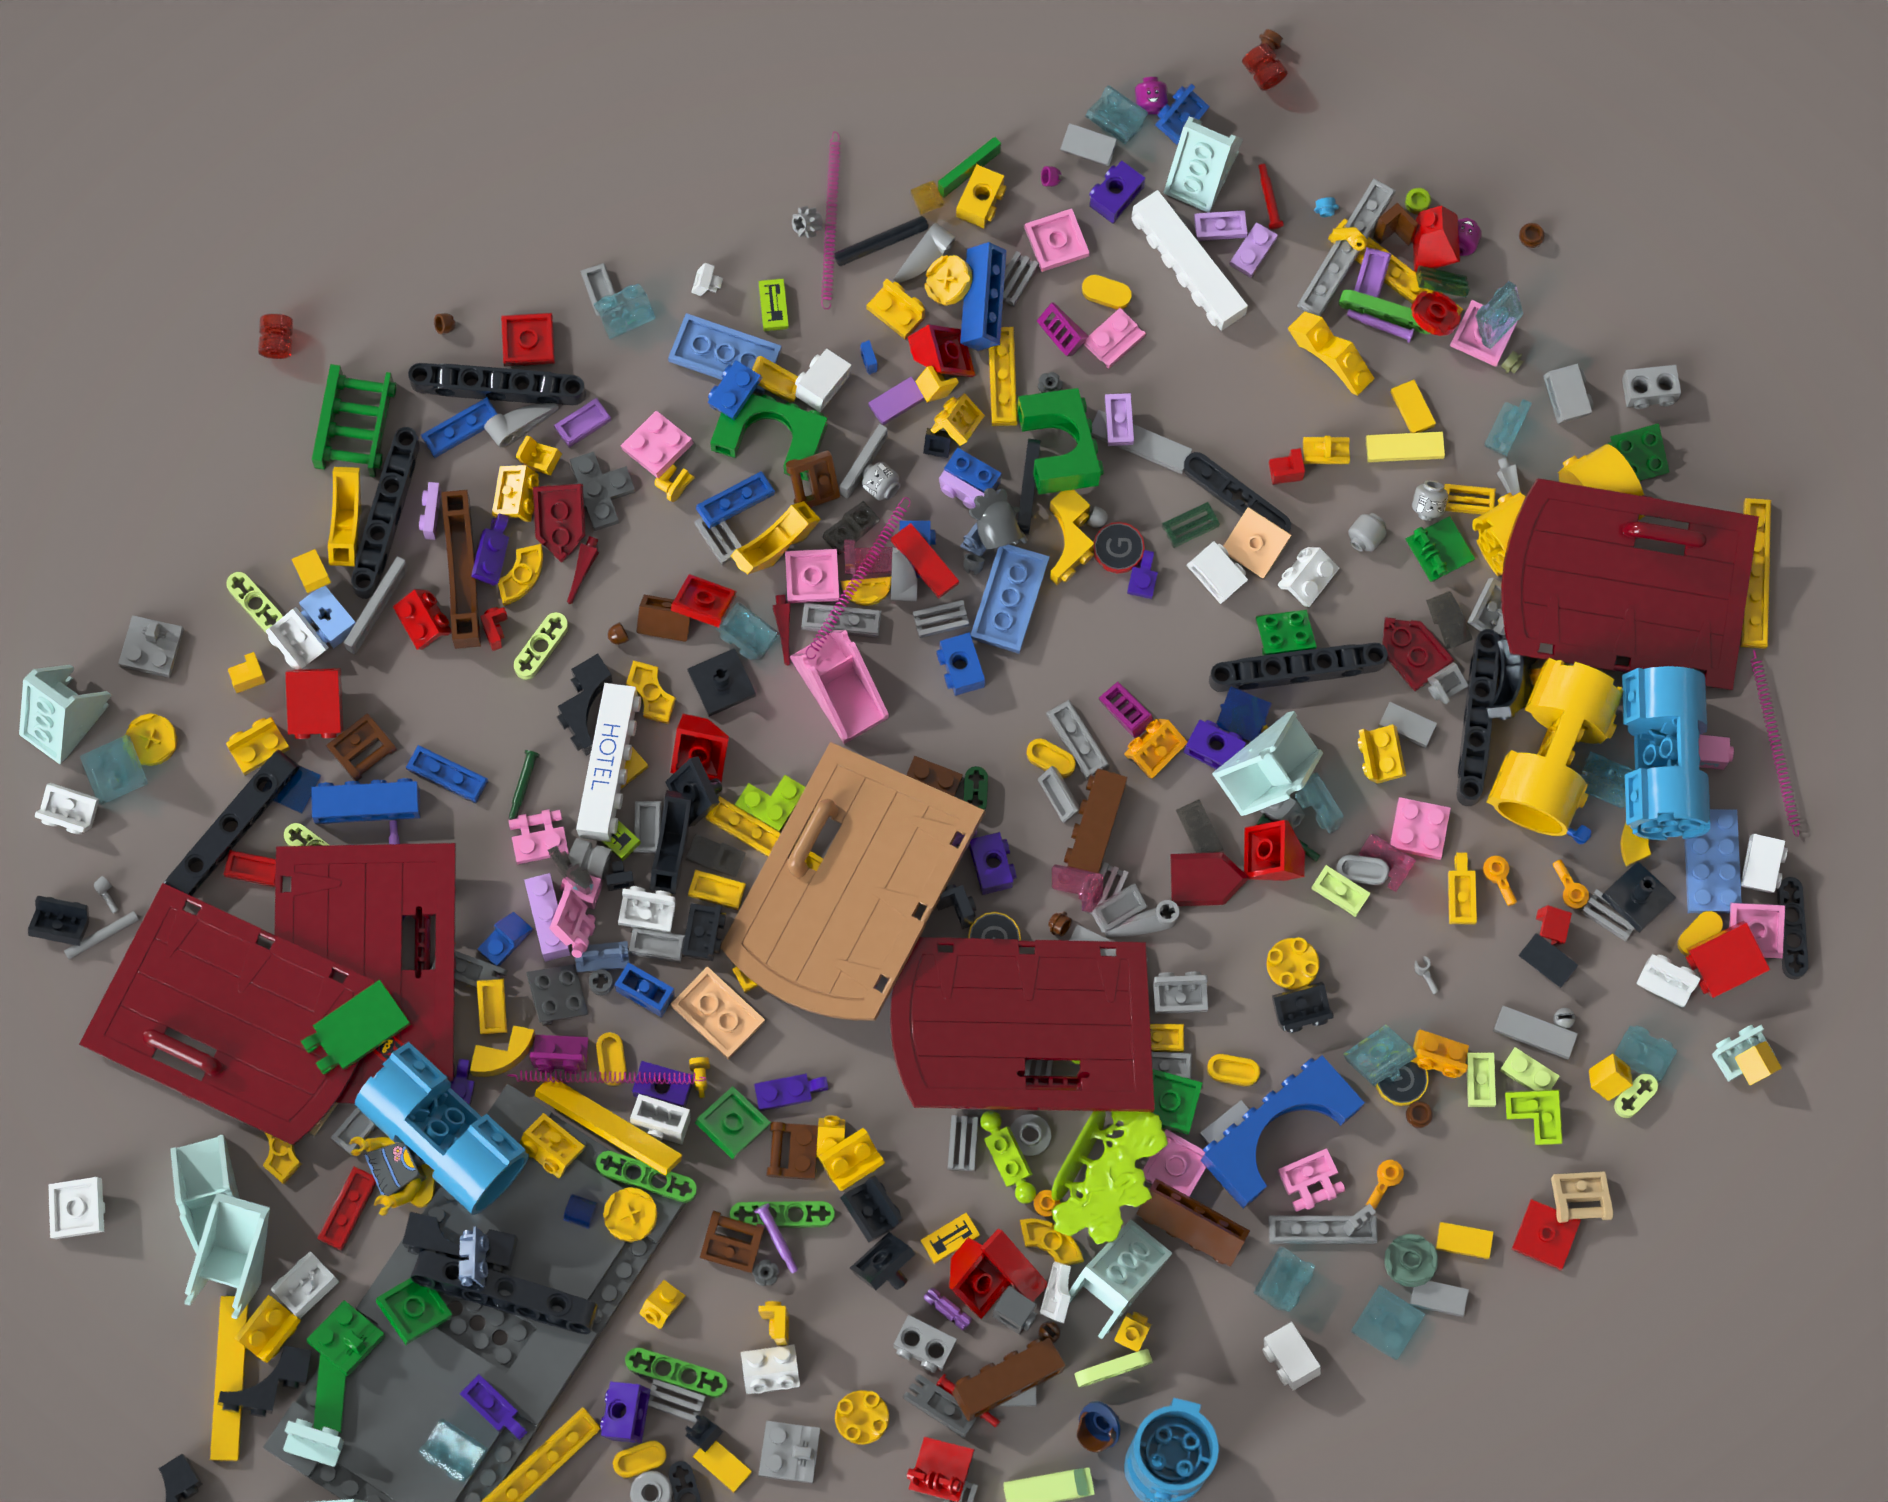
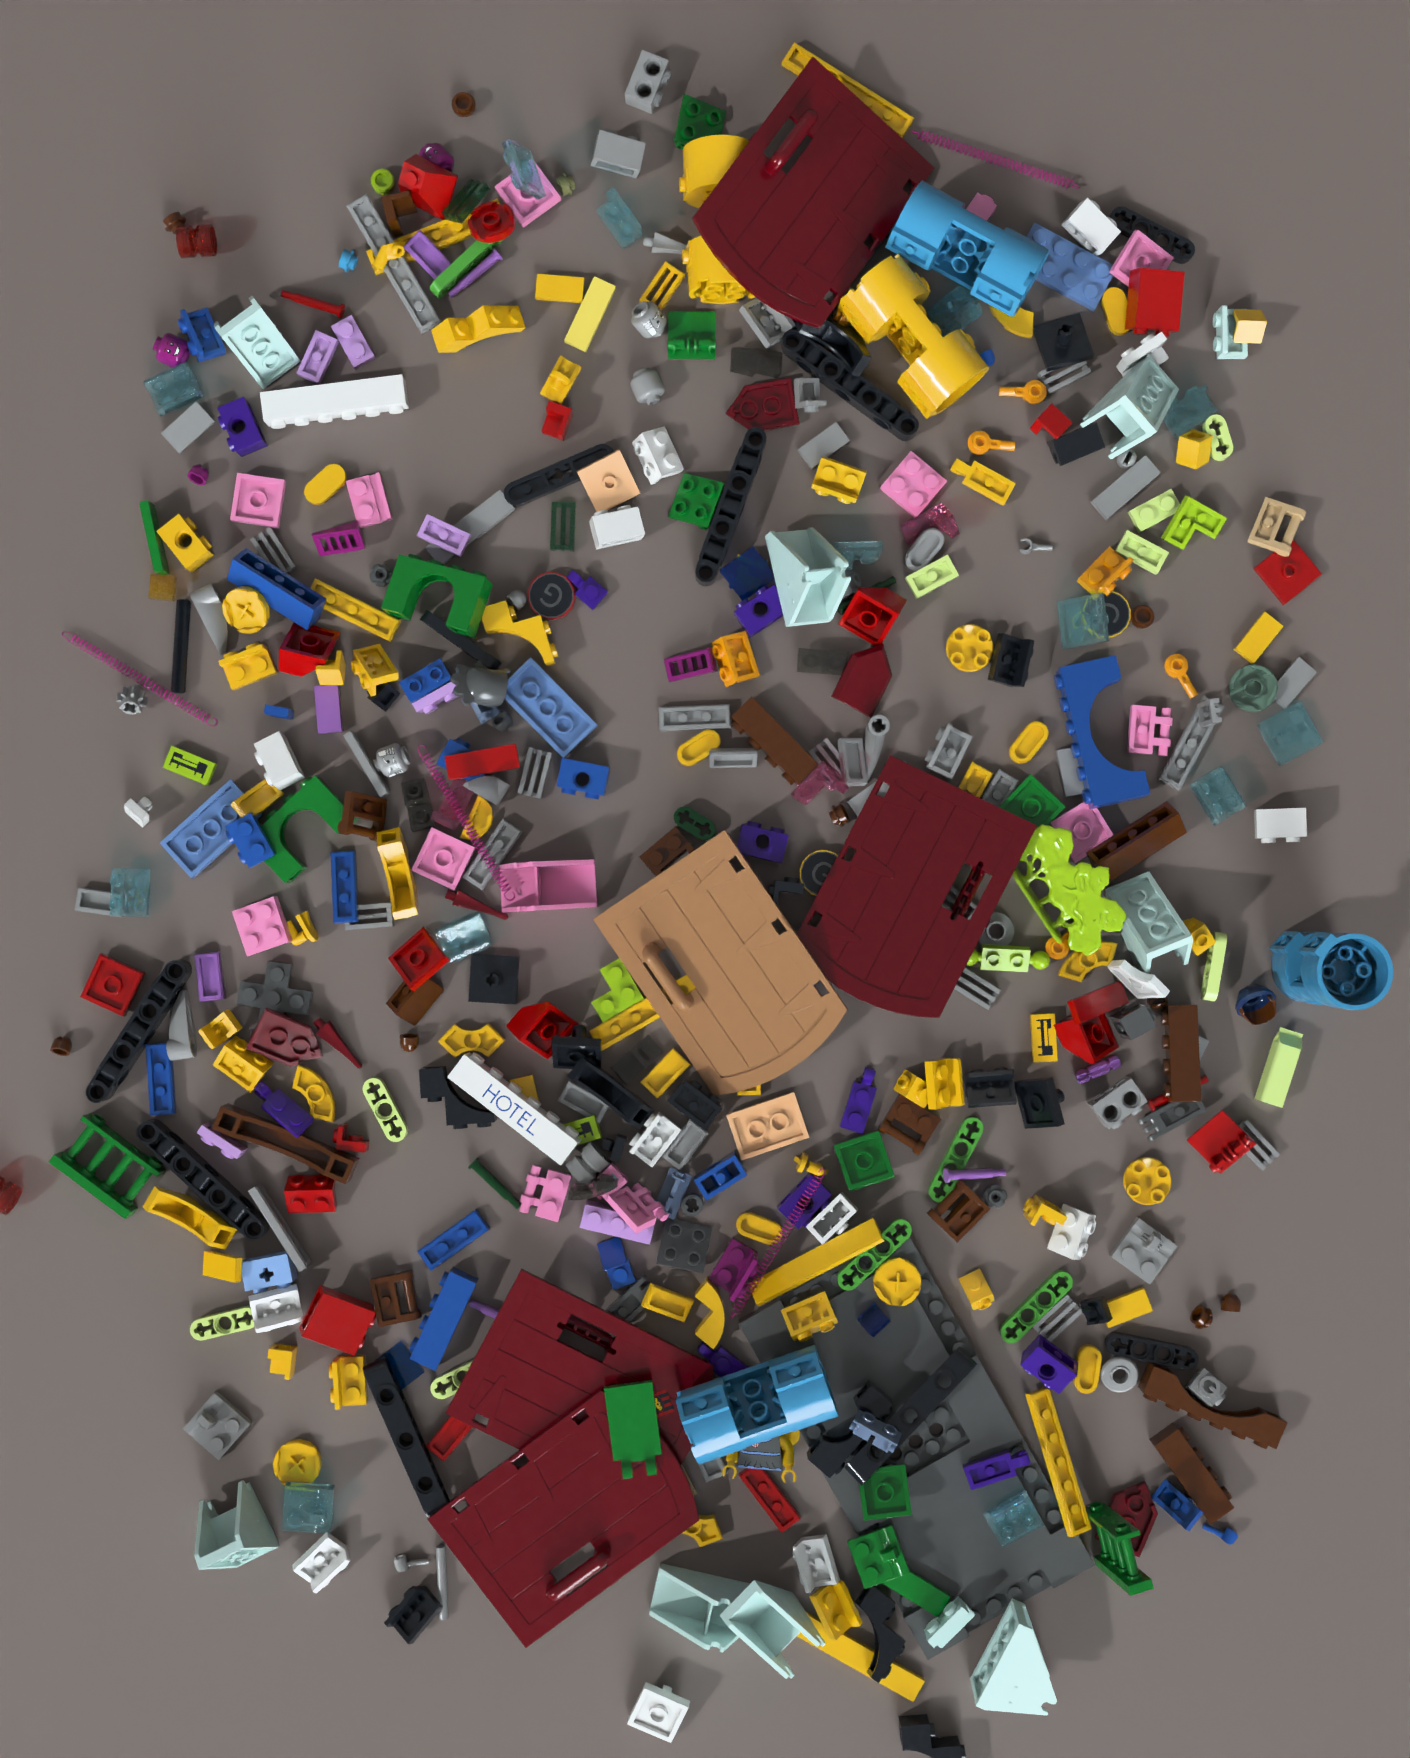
camera: 60 degrees left, 15 degrees up
(1623, 993) = (1136, 404): none -> light aqua ladder

